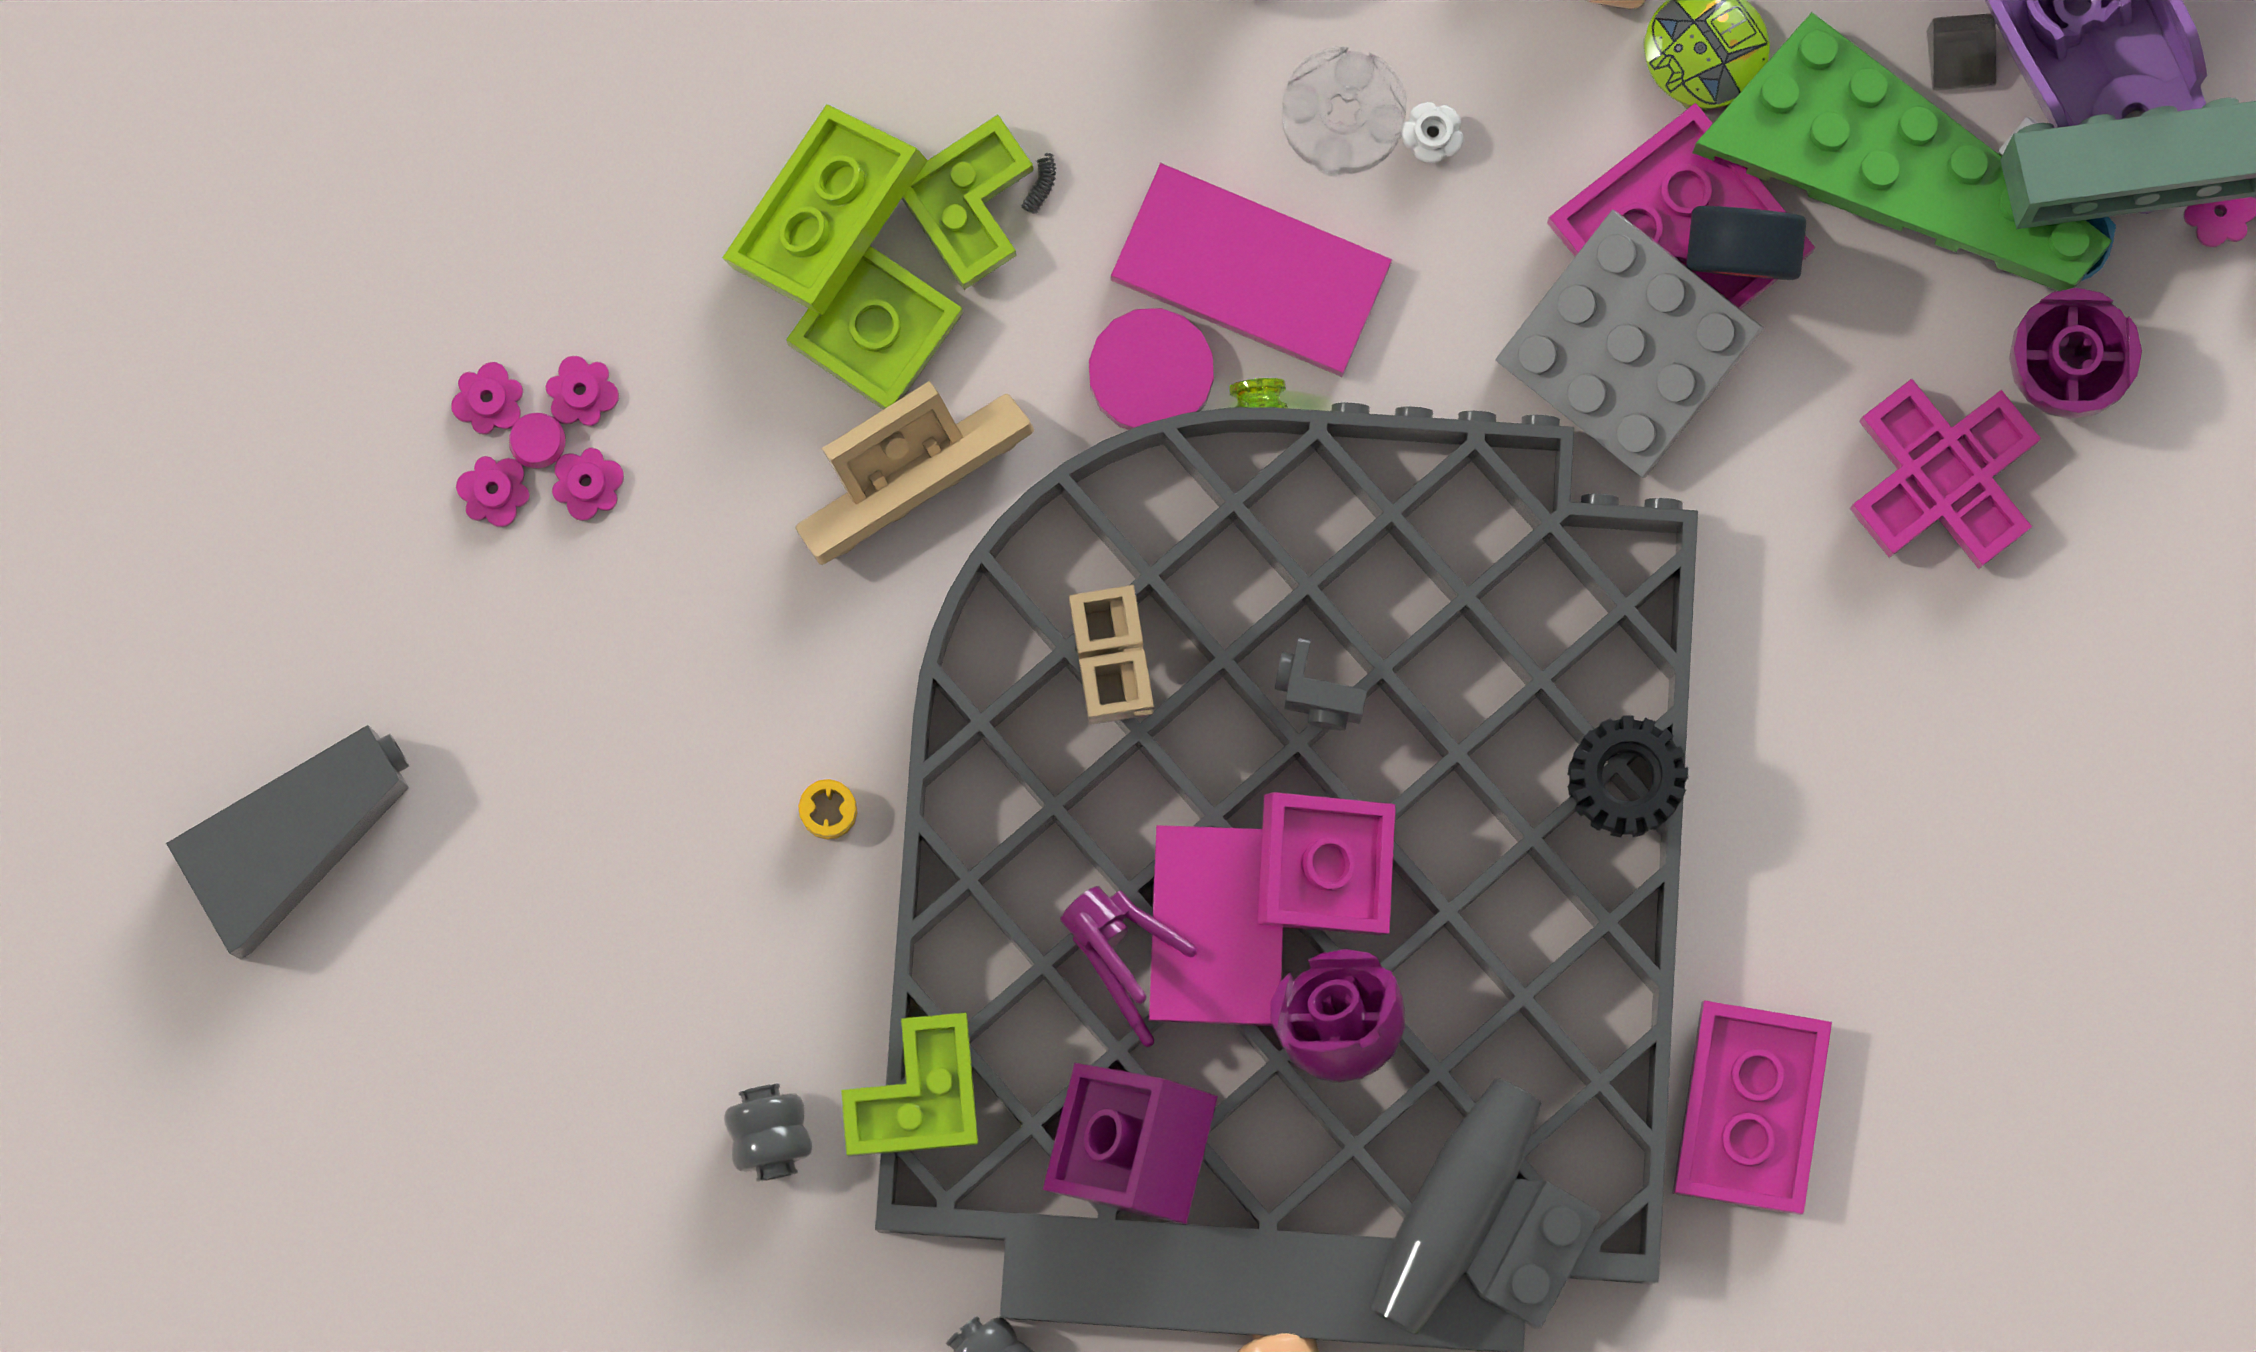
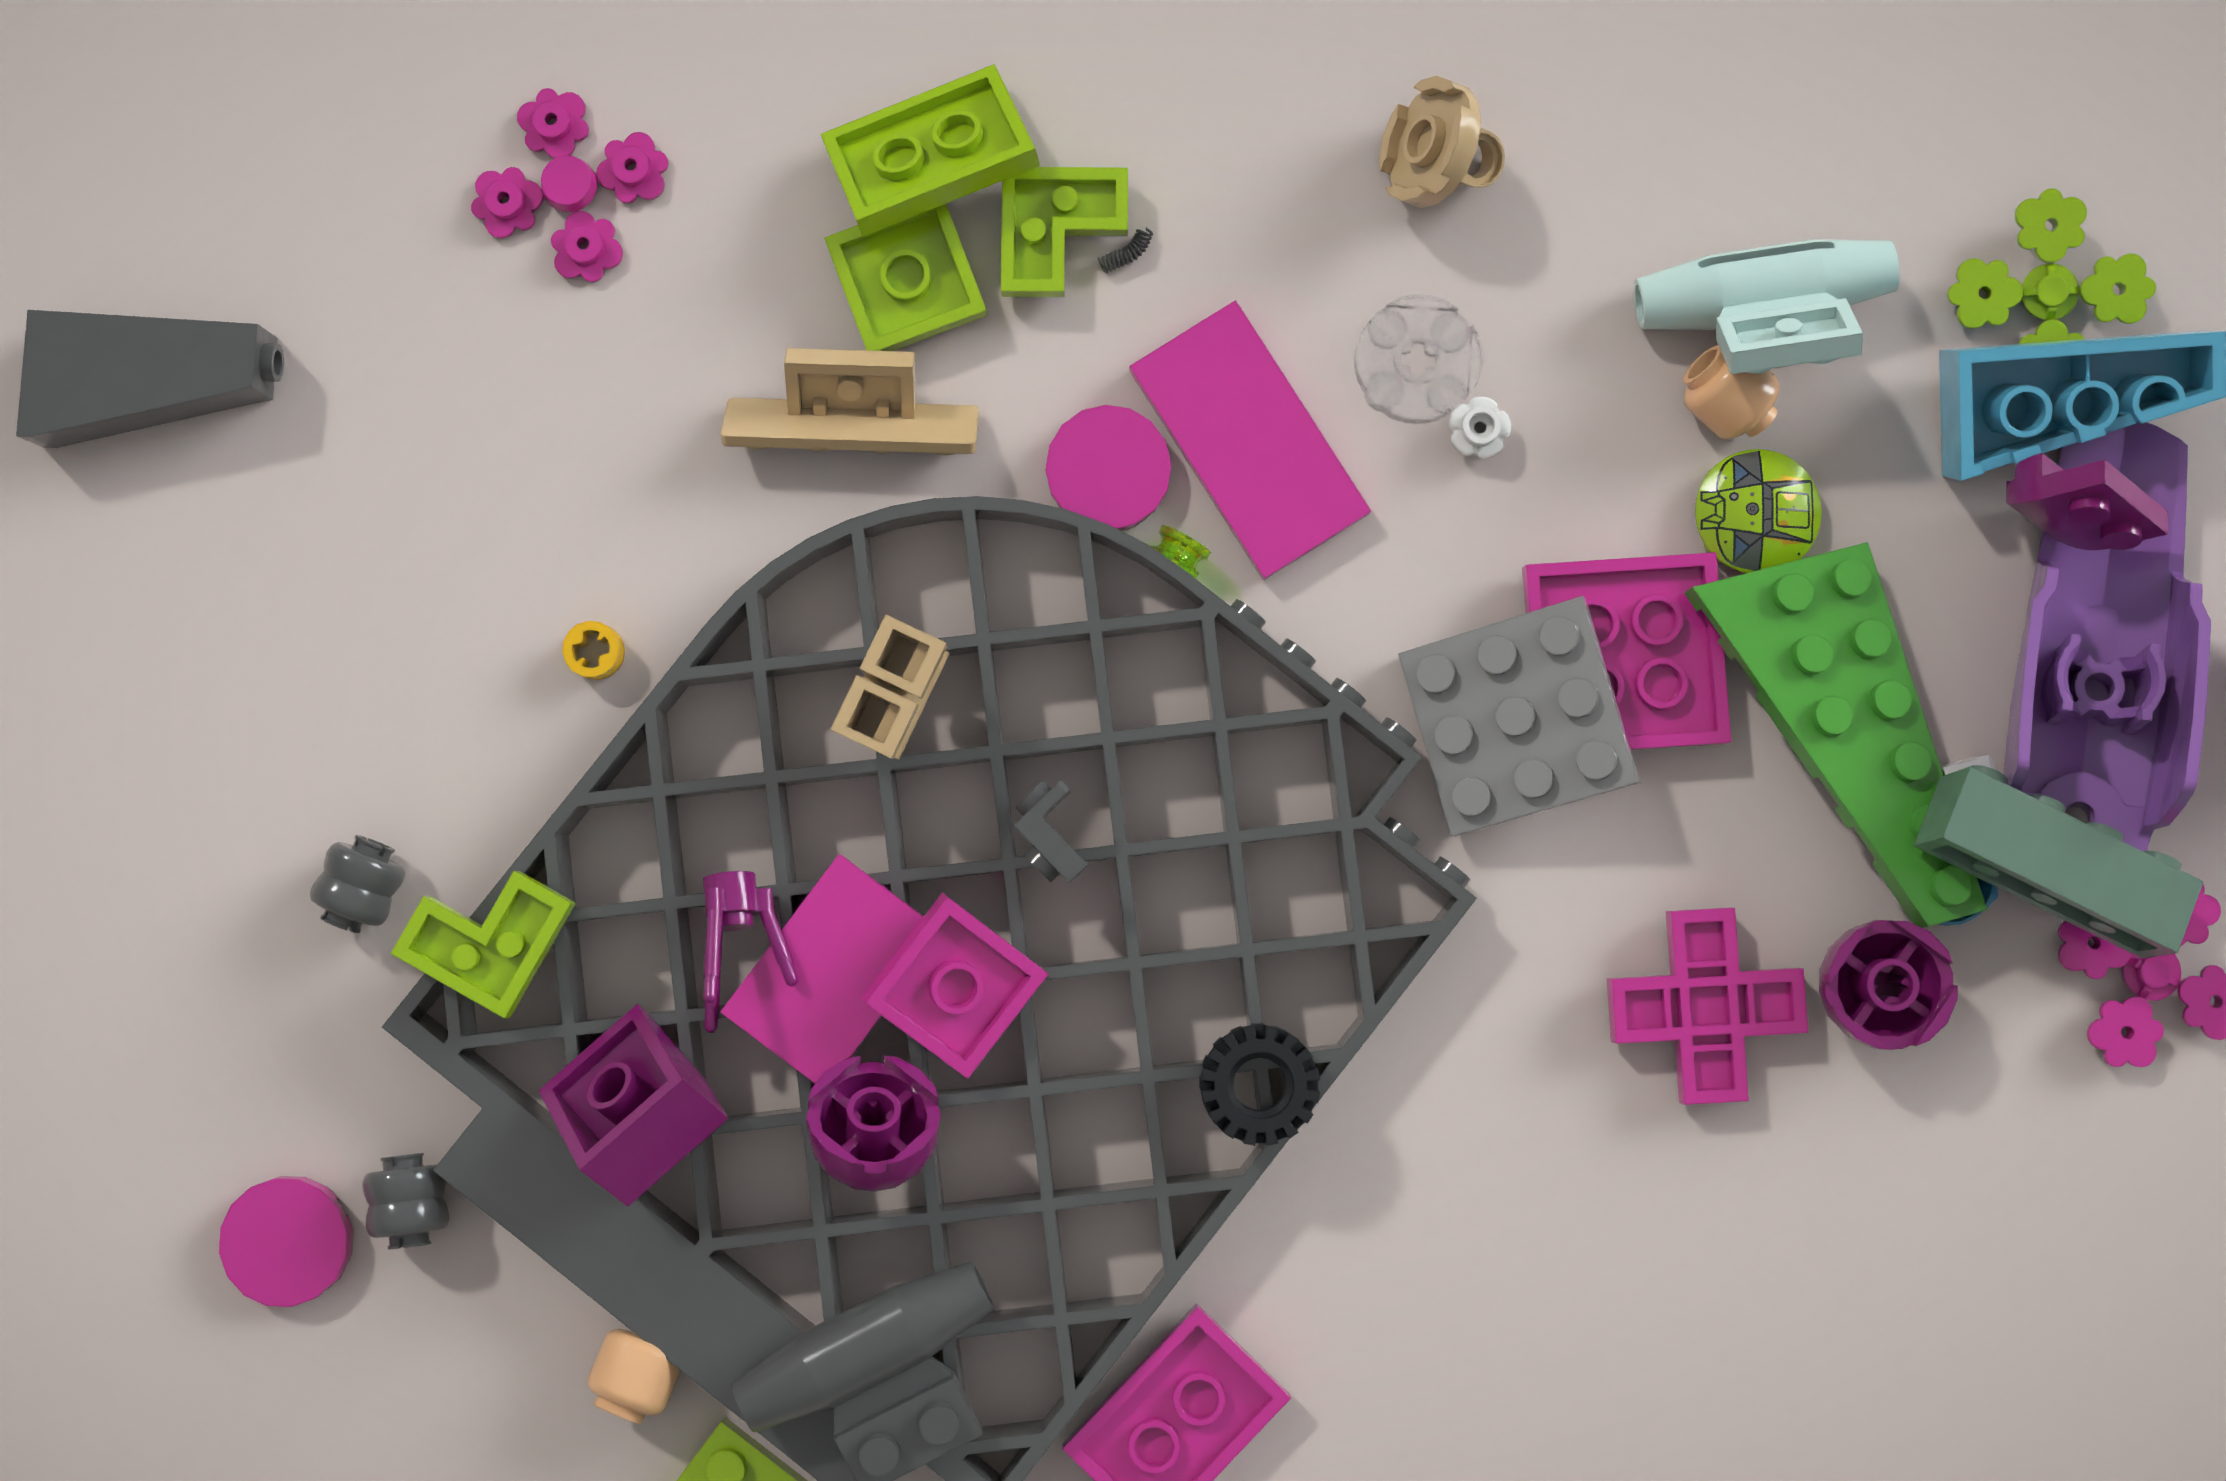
camera: 30 degrees right, 5 degrees up
(1746, 242) = (1675, 702): black wheel -> none
(1962, 51) = (1970, 661): clear smoke slope -> none

